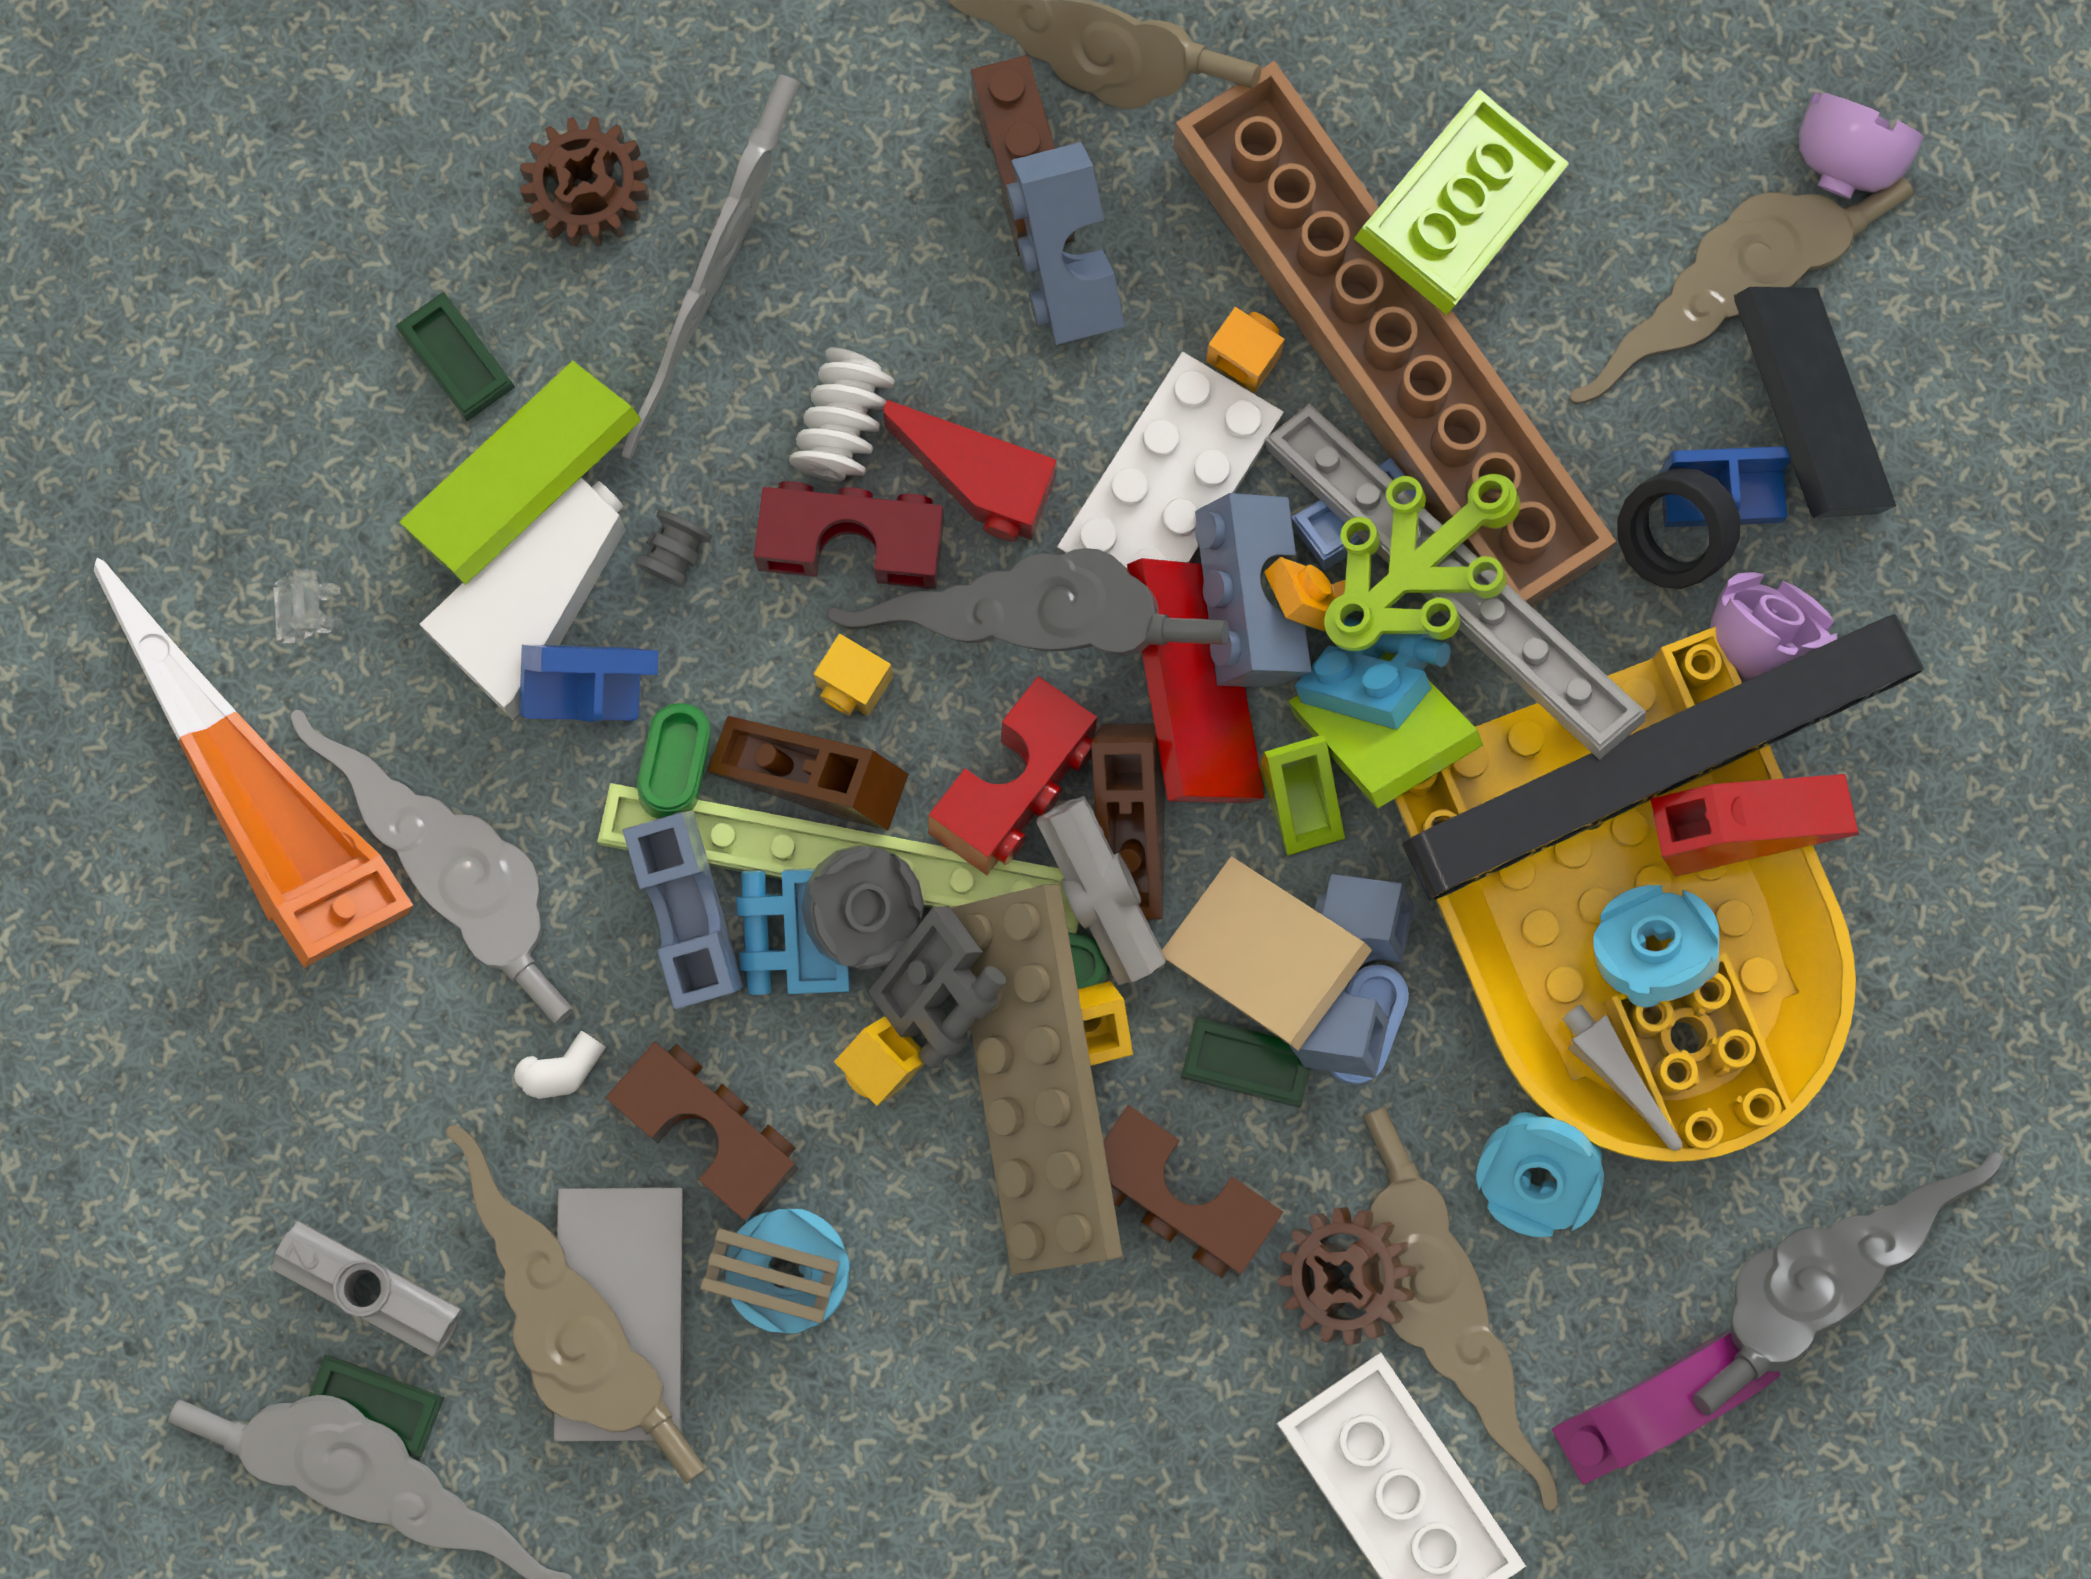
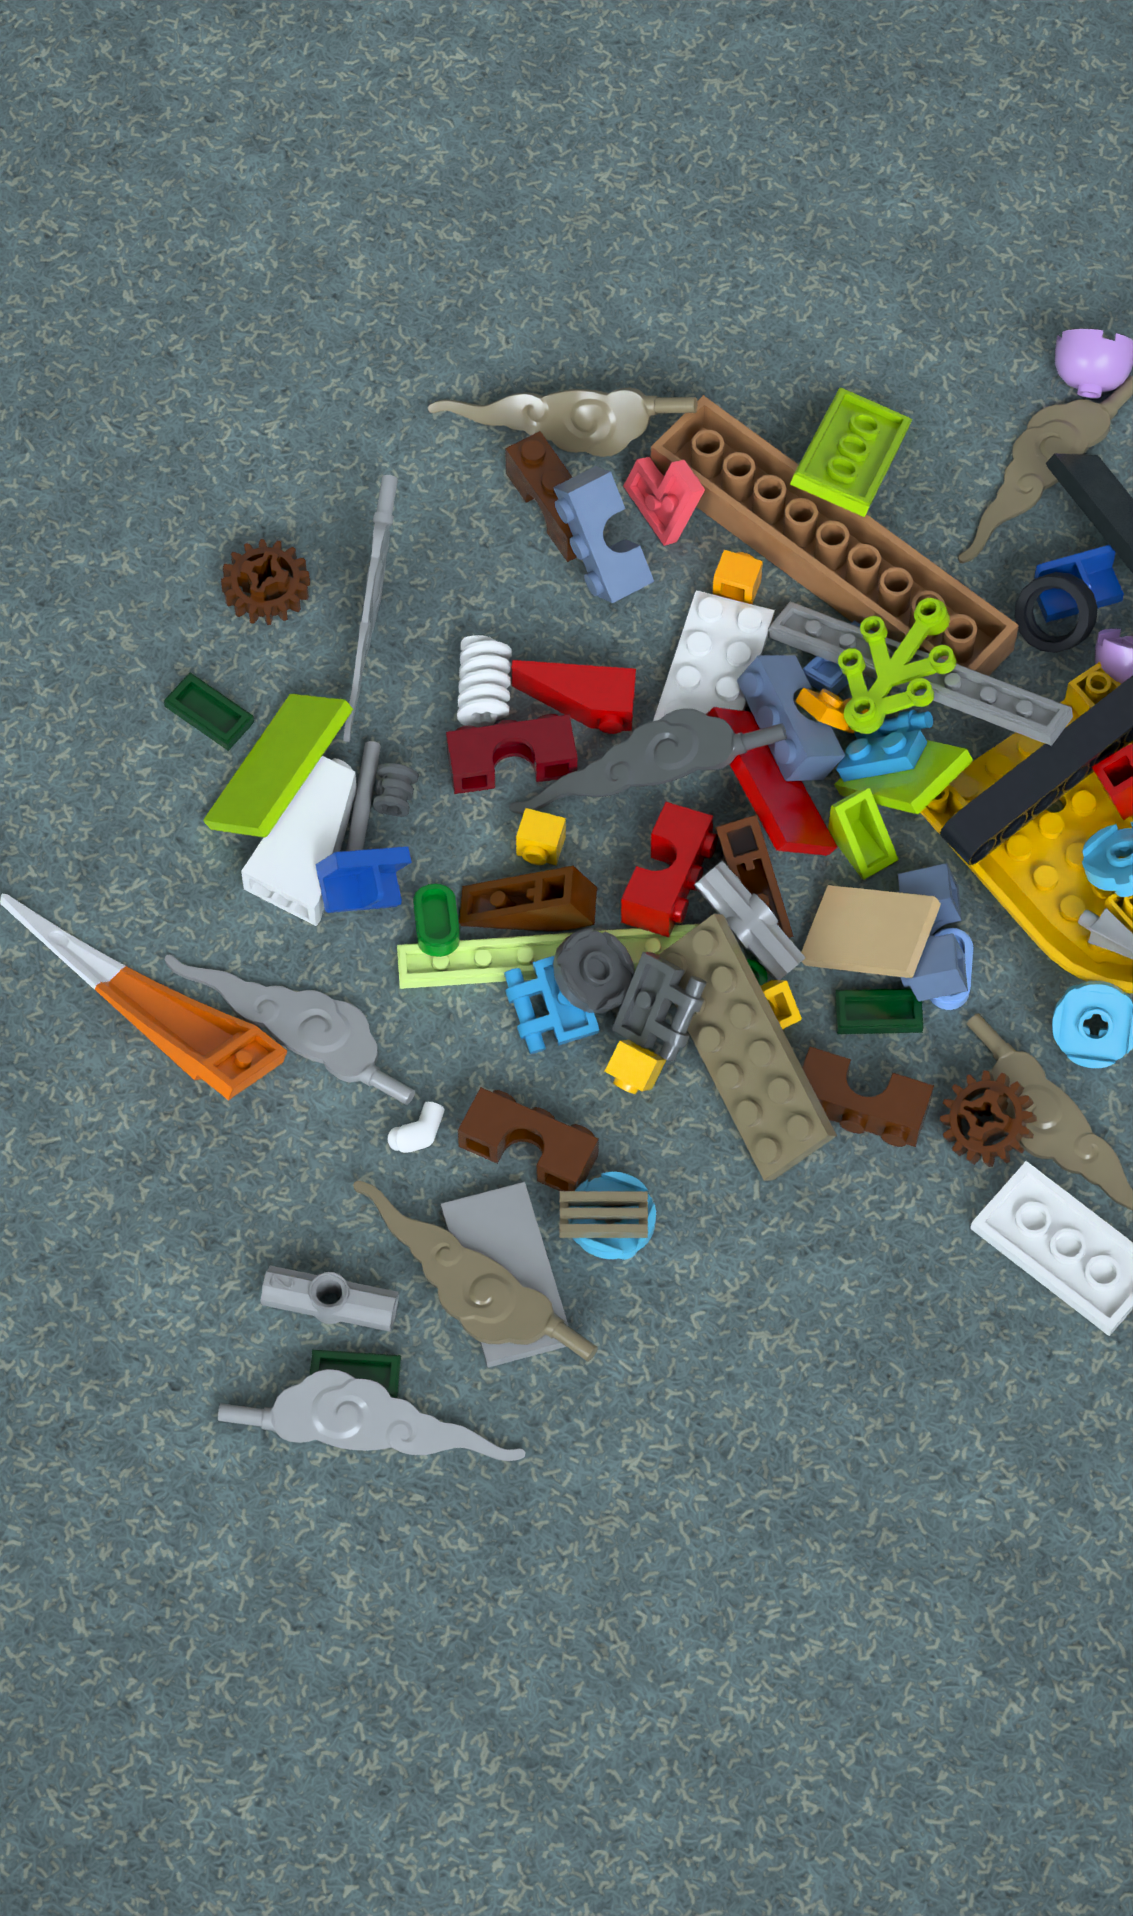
camera: 15 degrees left, 15 degrees down
(298, 606) = (153, 887): clear tile -> none
(628, 548) = (363, 796): none -> light grey bar
(692, 926) = (473, 1001): sand blue arch -> none
(1178, 200) = (666, 499): none -> coral plate

